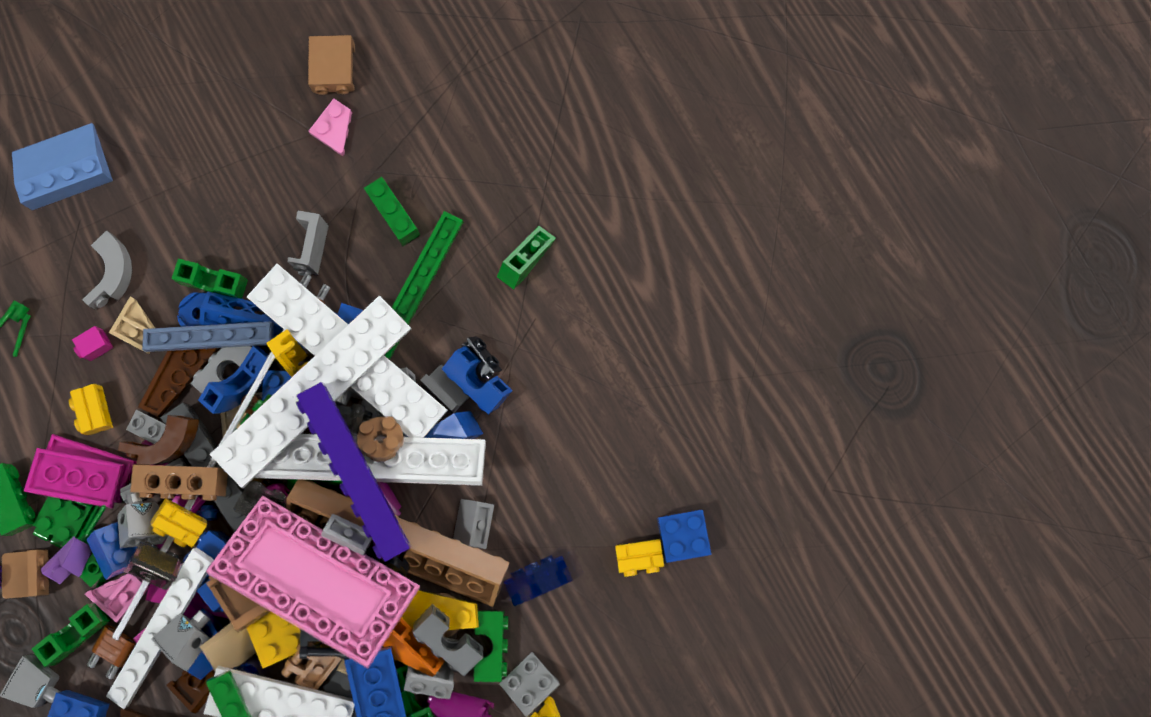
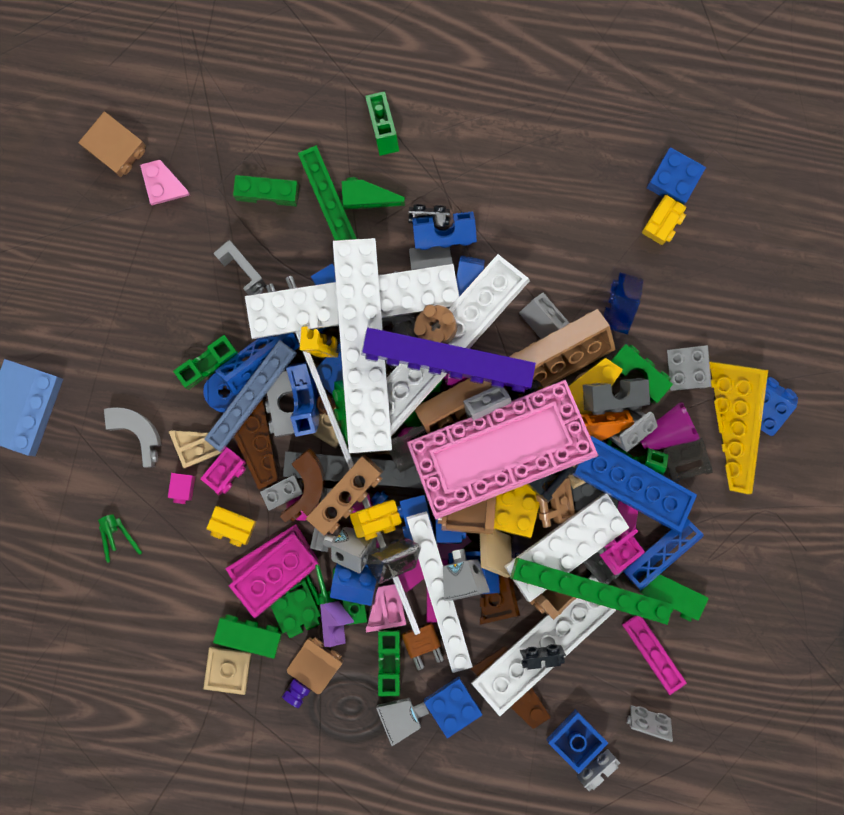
camera: 55 degrees left, 5 degrees up
(132, 366) = (223, 471): none -> dark pink bracket
(452, 289) = (362, 194): none -> green slope

